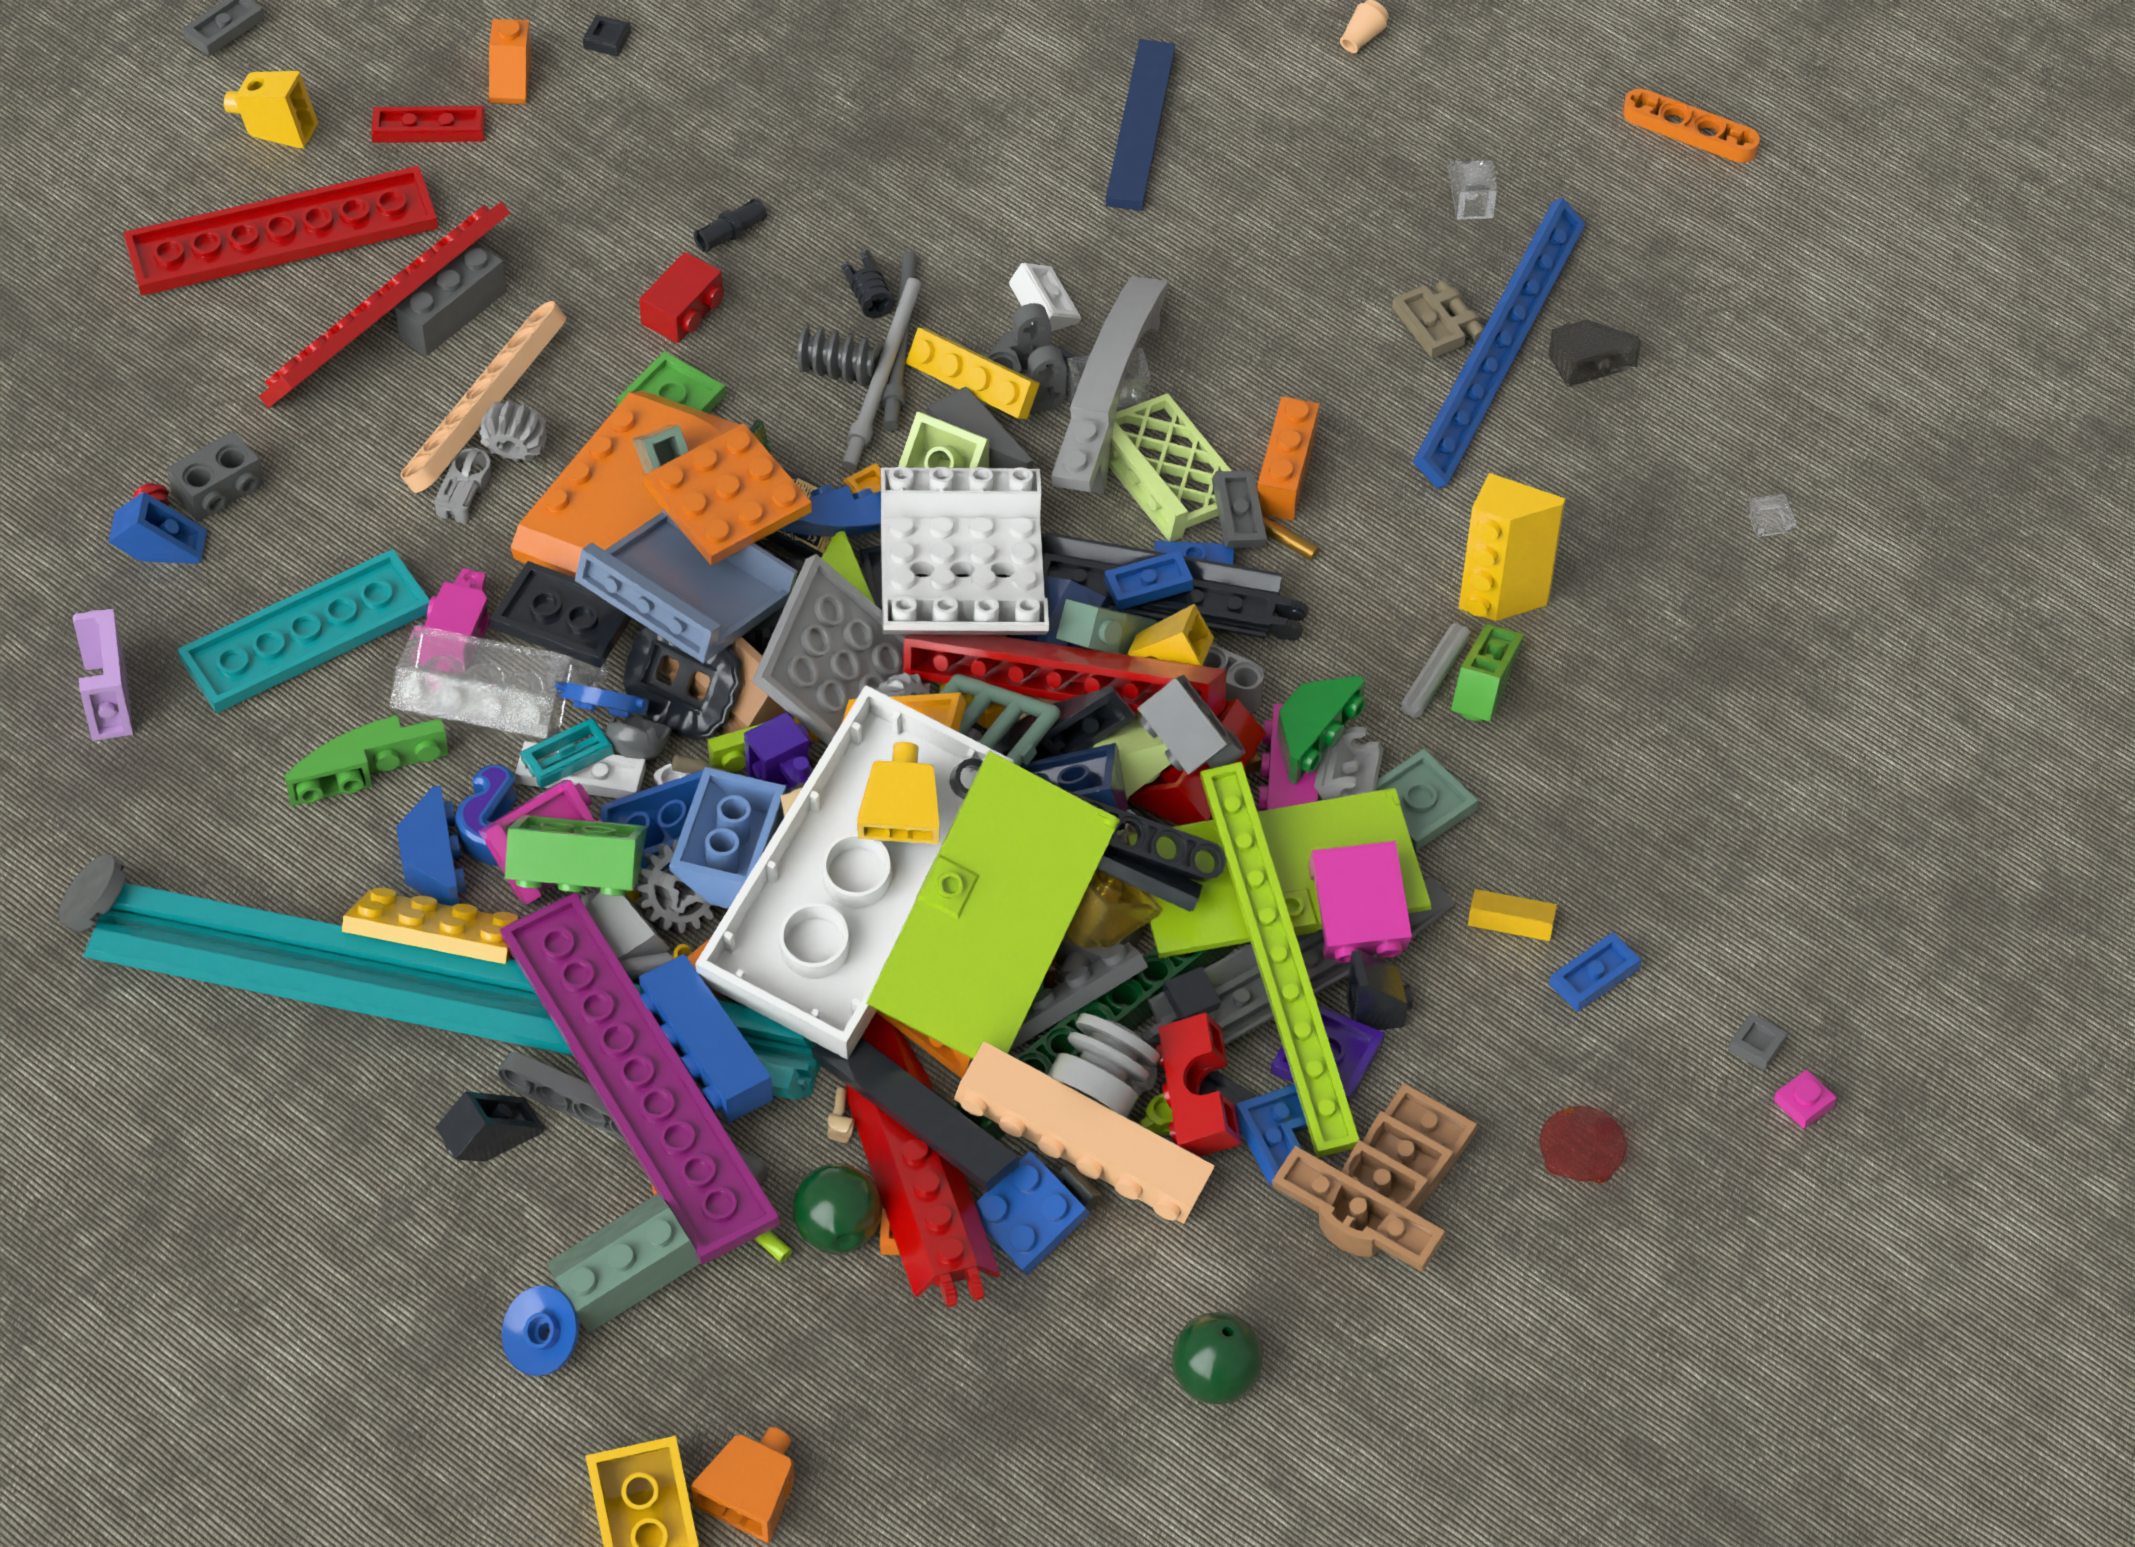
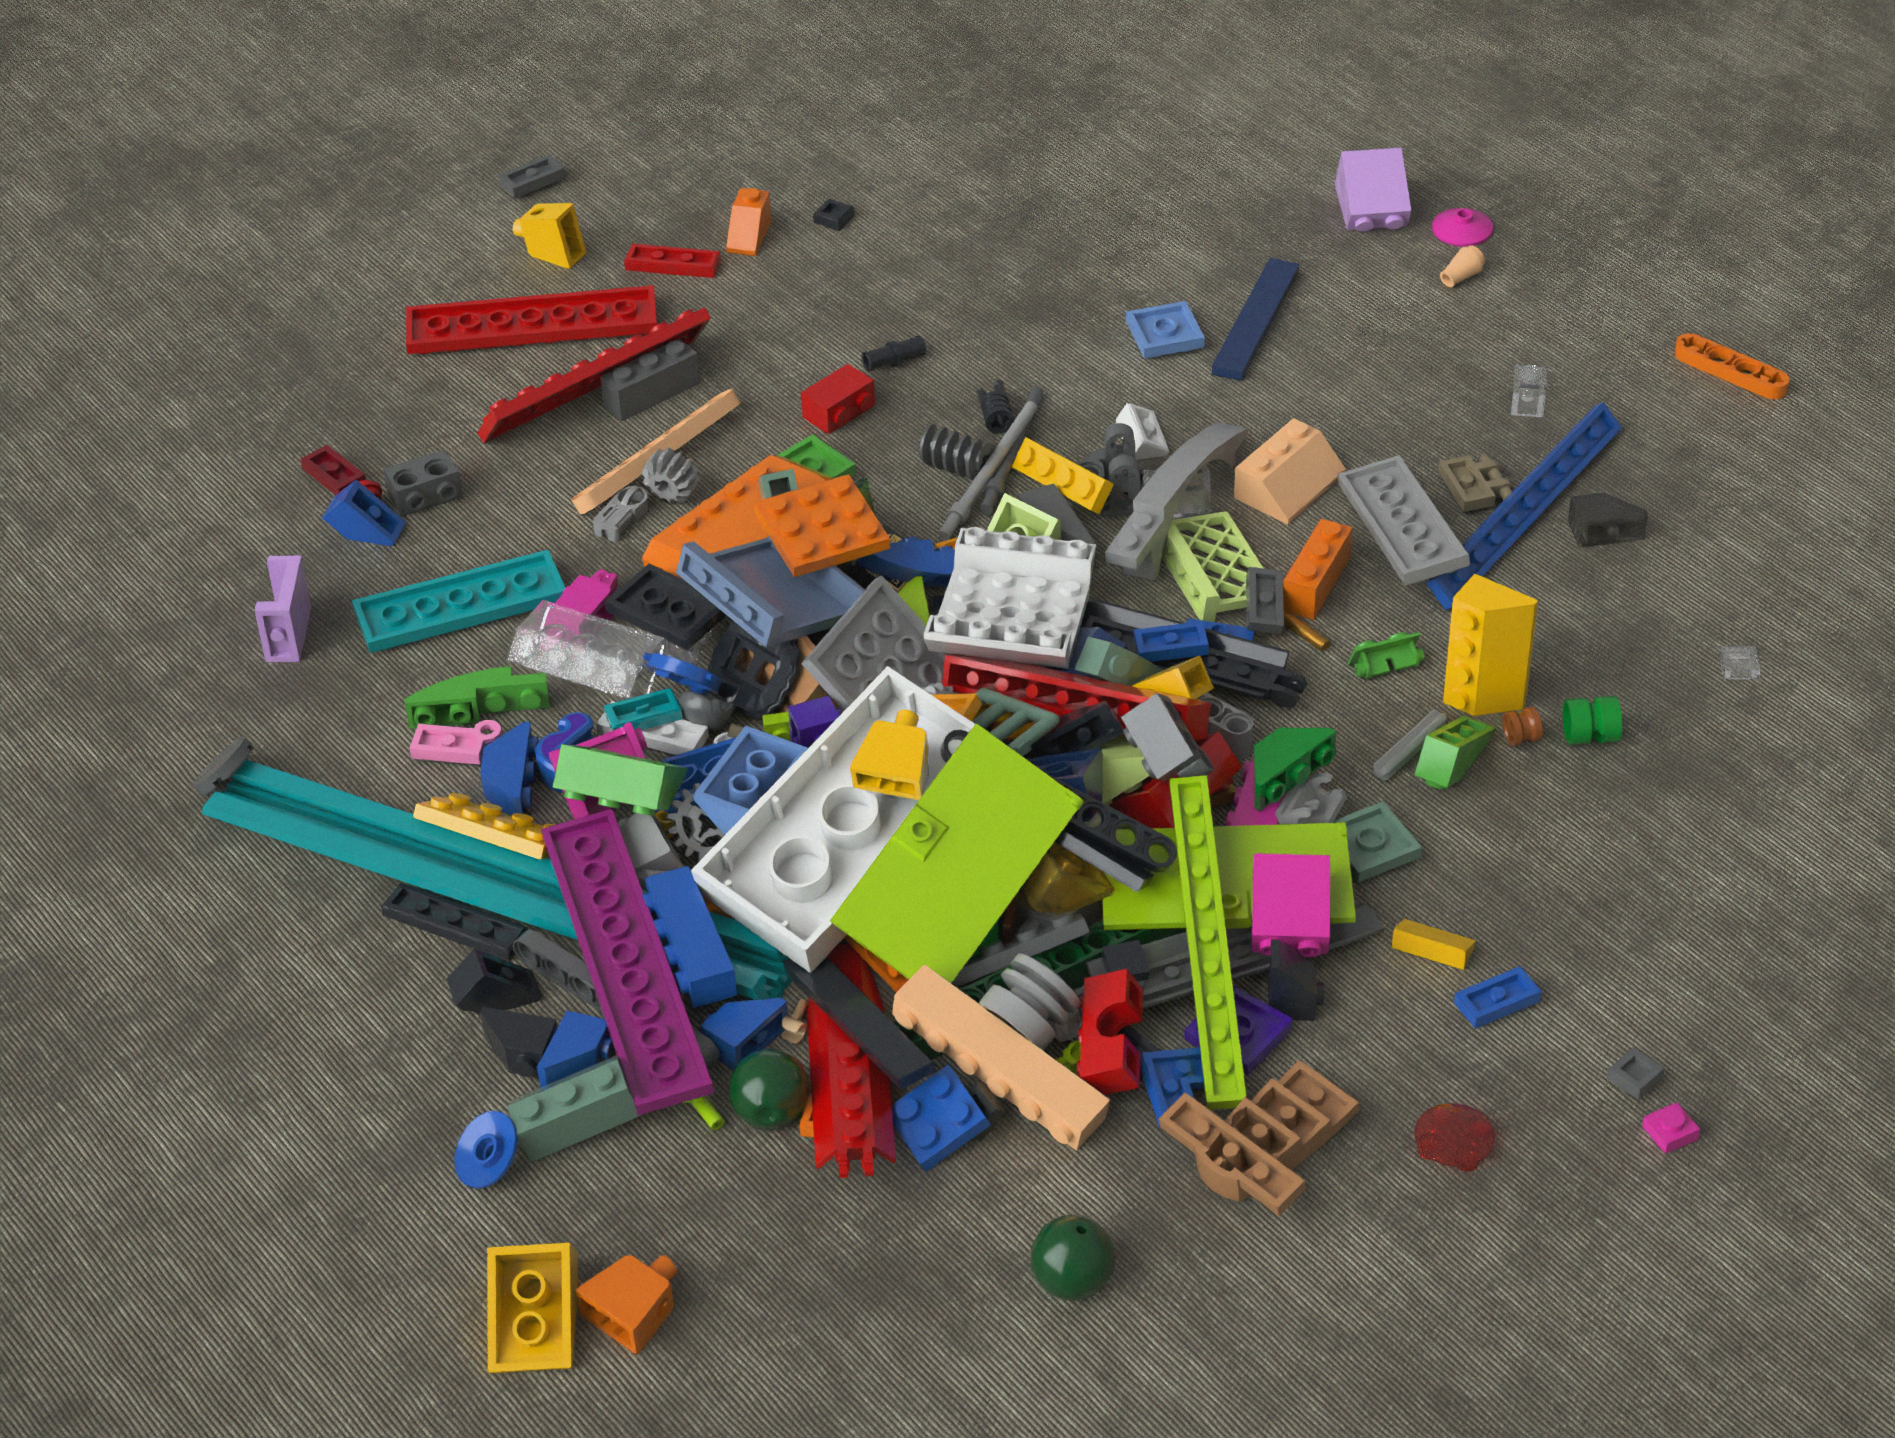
camera: 15 degrees right, 10 degrees down
(100, 473) = (331, 469): none -> dark red plate
(352, 820) = (453, 743): none -> bright pink hinge
(417, 1049) = (453, 921): none -> black tile
(539, 1190) = (518, 1038): none -> black slope
(607, 1190) = (574, 1047): none -> blue slope
(787, 1137) = (744, 1027): none -> blue slope
(1040, 154) = (1165, 329): none -> medium blue plate
(1226, 333) = (1287, 472): none -> light nougat slope
(1371, 383) = (1403, 520): none -> light grey plate
(1372, 565) = (1372, 657): none -> bright green hinge
(1554, 631) = (1522, 726): none -> dark orange wheel
(1636, 613) = (1592, 720): none -> green wheel

